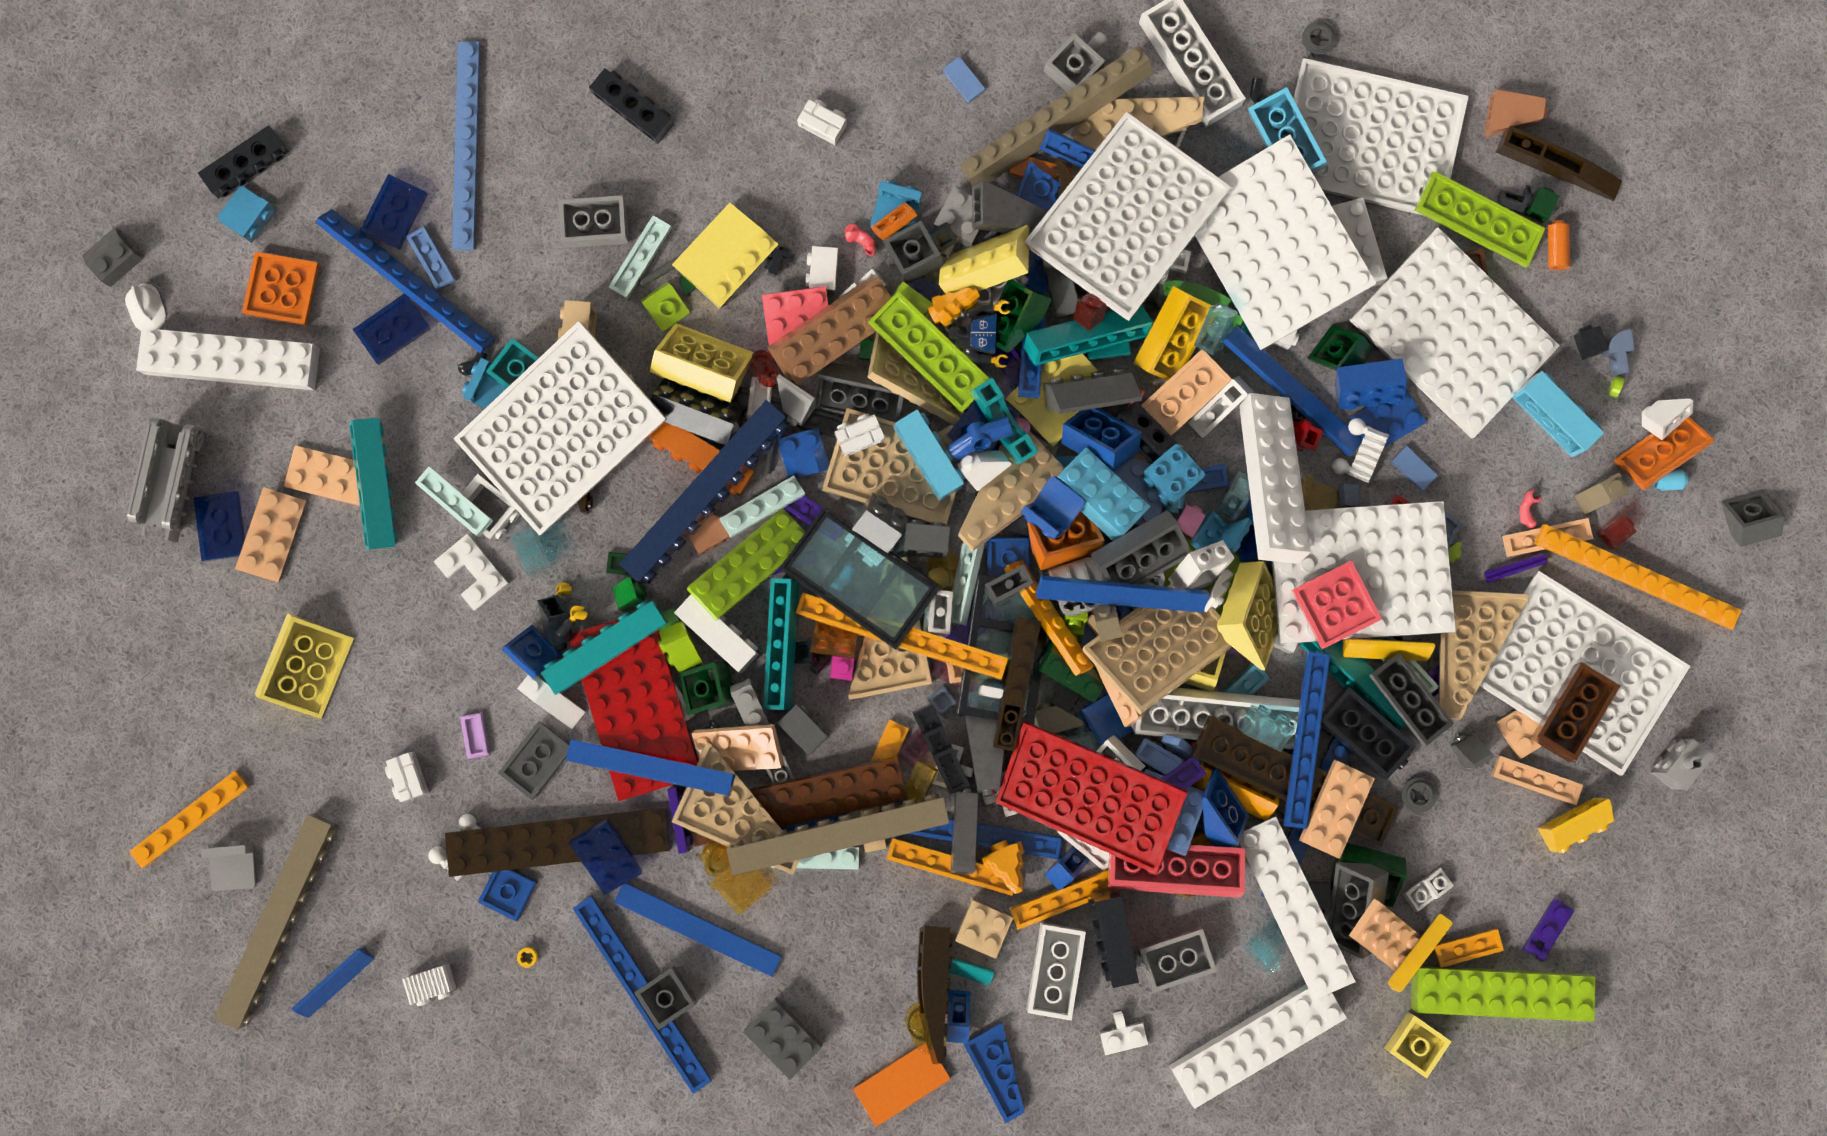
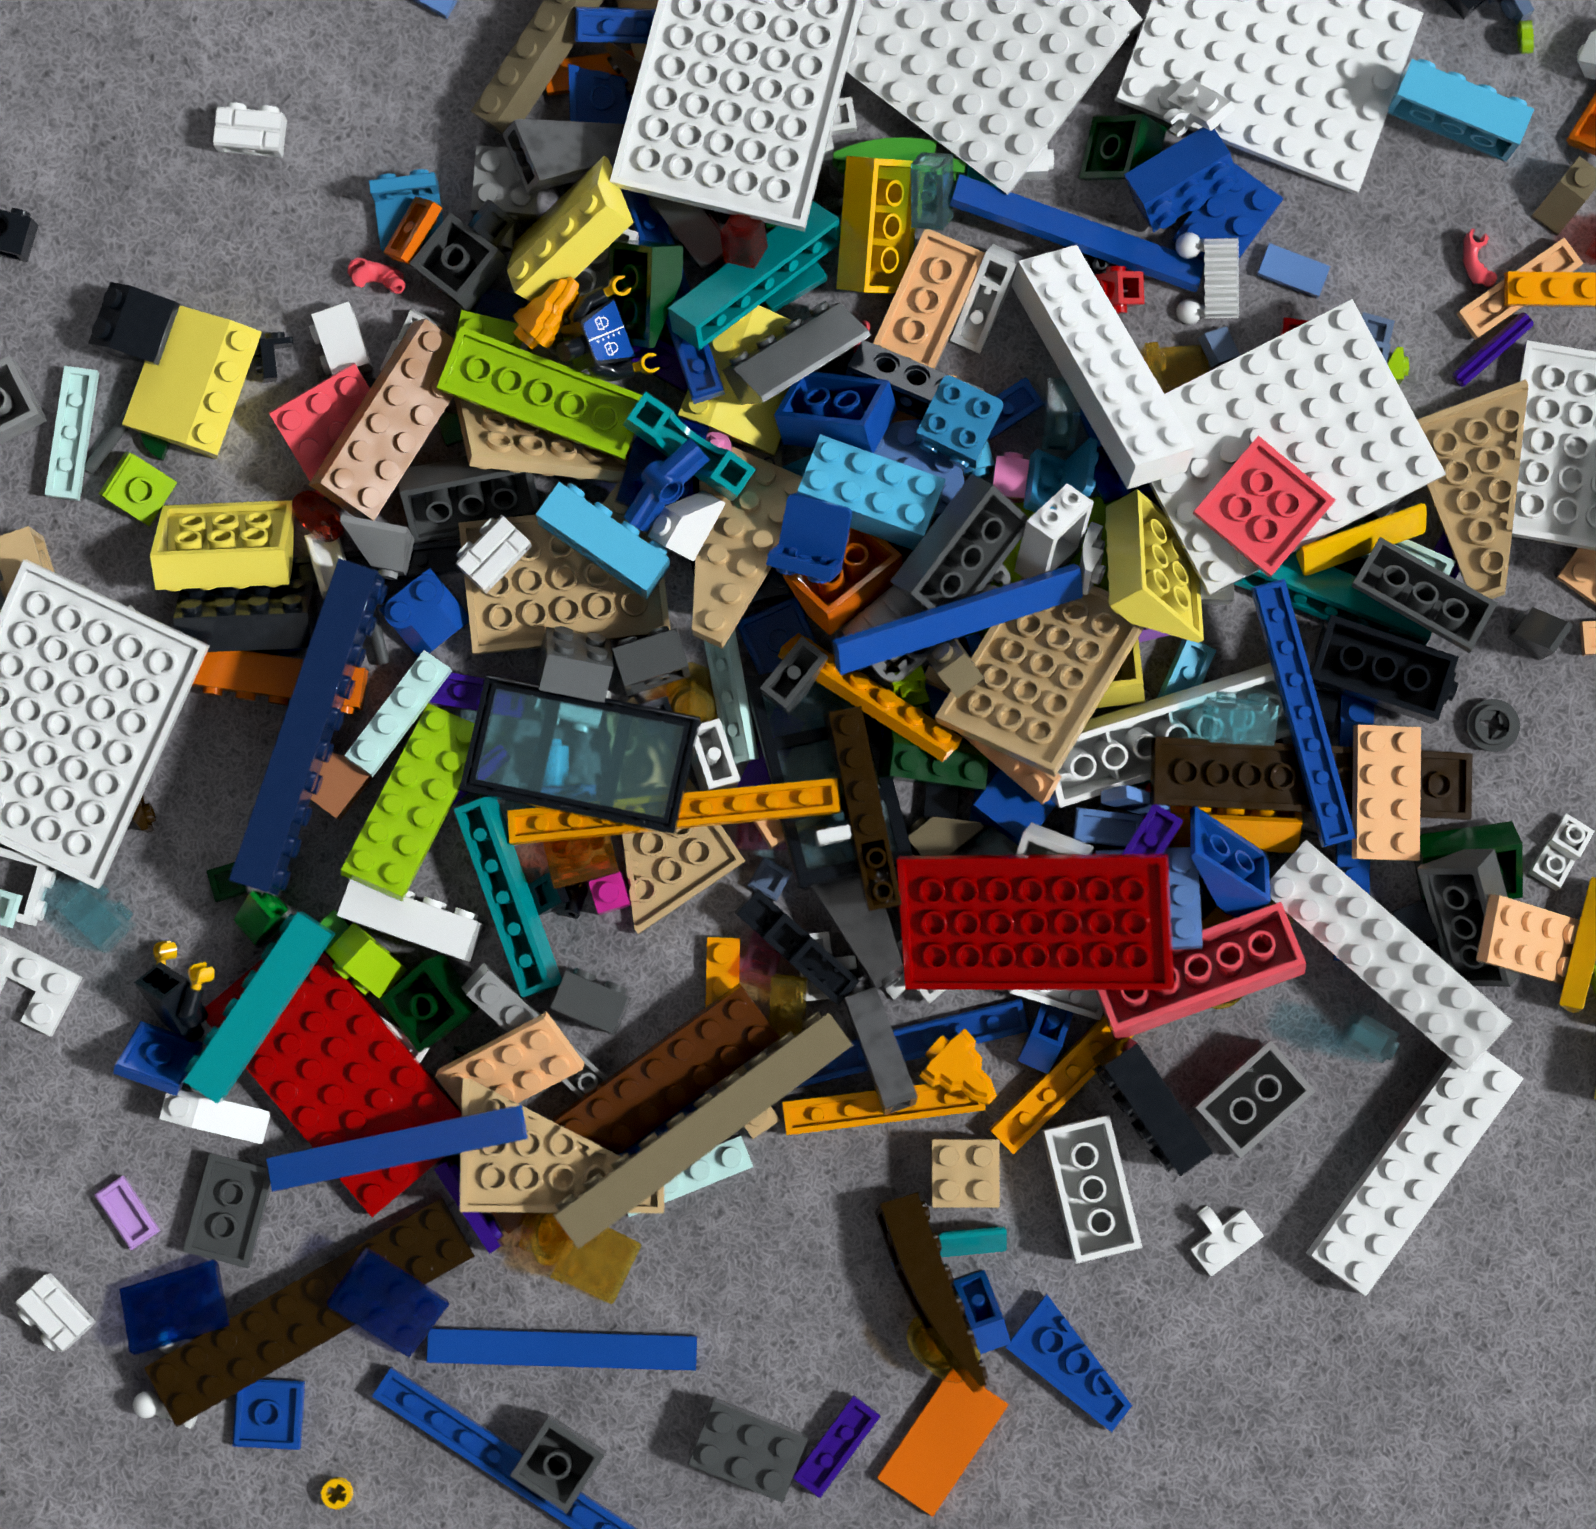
camera: 25 degrees left, 0 degrees up
(478, 804) = (174, 1307): none -> clear blue plate
(704, 207) = (133, 324): none -> black slope
(836, 1059) = (836, 1446): none -> dark purple plate
(1399, 344) = (1196, 104): none -> white plate

